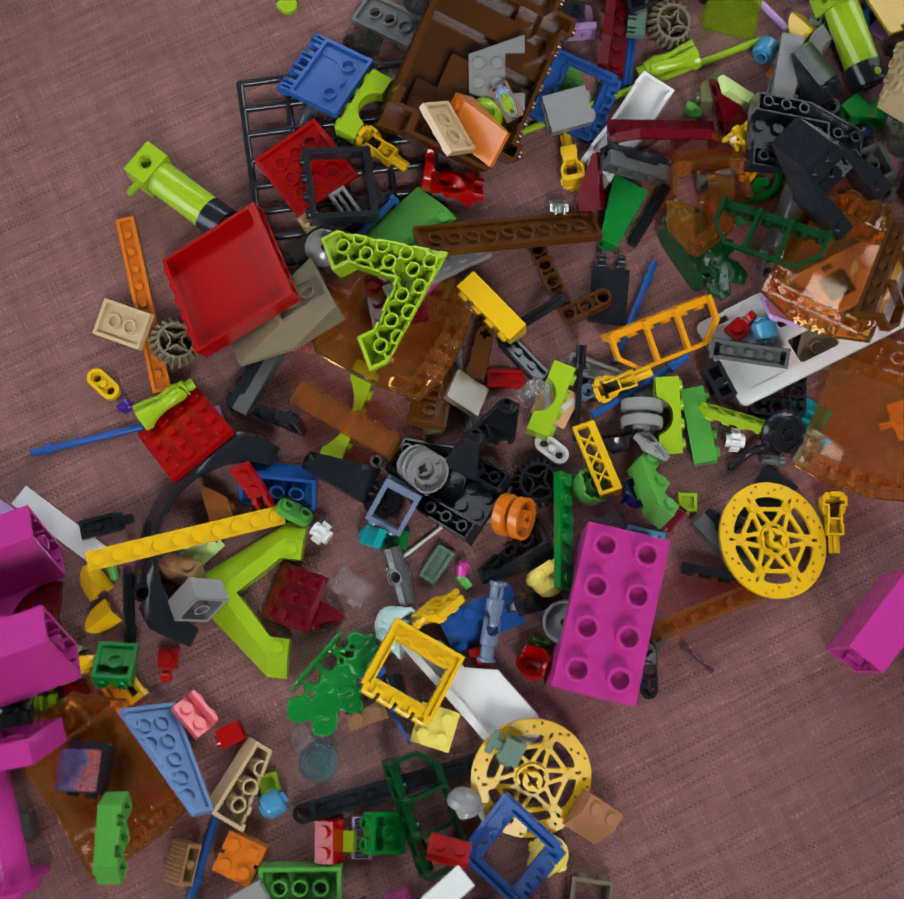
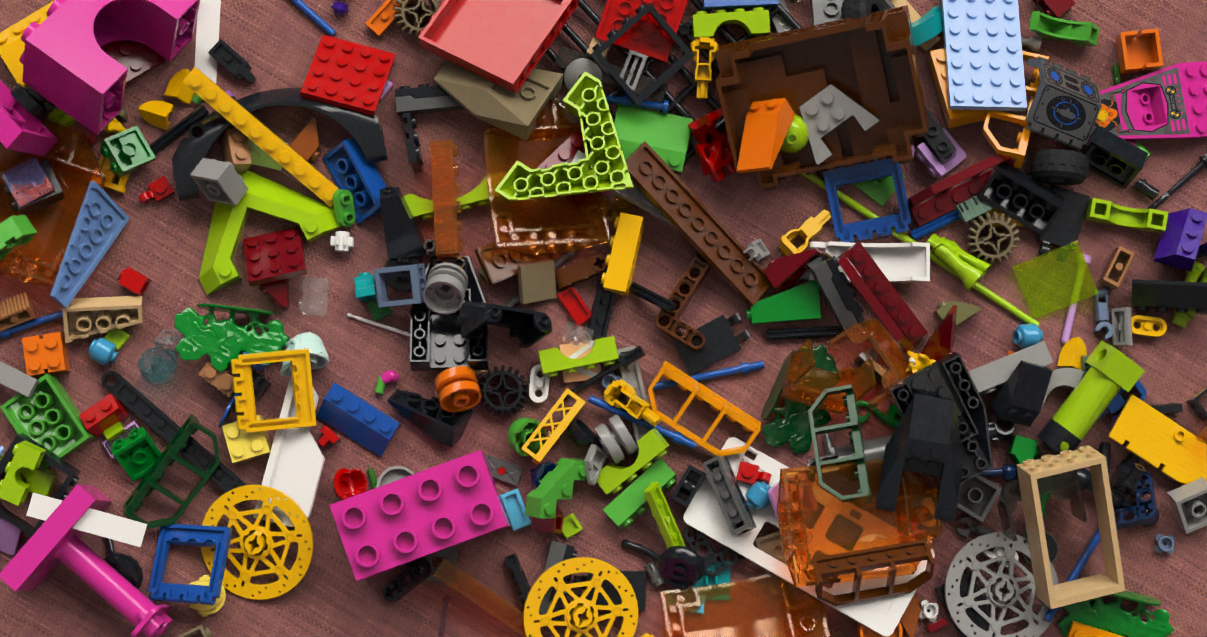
camera: 50 degrees right, 5 degrees up
(153, 408) = (350, 32): lime piece -> none
(195, 714) = (130, 241): coral bracket -> none
(252, 485) = (341, 159): red hinge -> none
(401, 583) = (349, 329): dark grey piece -> none
(436, 564) = (380, 353): sand green tile -> none
(438, 609) = (340, 377): yellow plate -> none
(447, 128) = (743, 113): tan plate -> none
(448, 851) = (156, 513): red brick -> none
(466, 803) = (201, 502): light grey hat -> none
(493, 610) = (369, 423): sand blue piece -> none
(506, 101) = (812, 144): tile -> none
(509, 749) = (265, 508): sand green brick -> none
(528, 604) = (395, 449): black hinge -> none
(542, 579) = (424, 450): light yellow helmet -> none
(563, 531) = (474, 435): green plate -> none
(567, 110) = (846, 201): light grey brick -> none
(592, 817) = (258, 611): nougat slope -> none
(692, 111) = (926, 310): bright green tile -> none
(734, 440) = (648, 531): white gear -> none
(735, 91) = (960, 339): yellowish green tile -> none

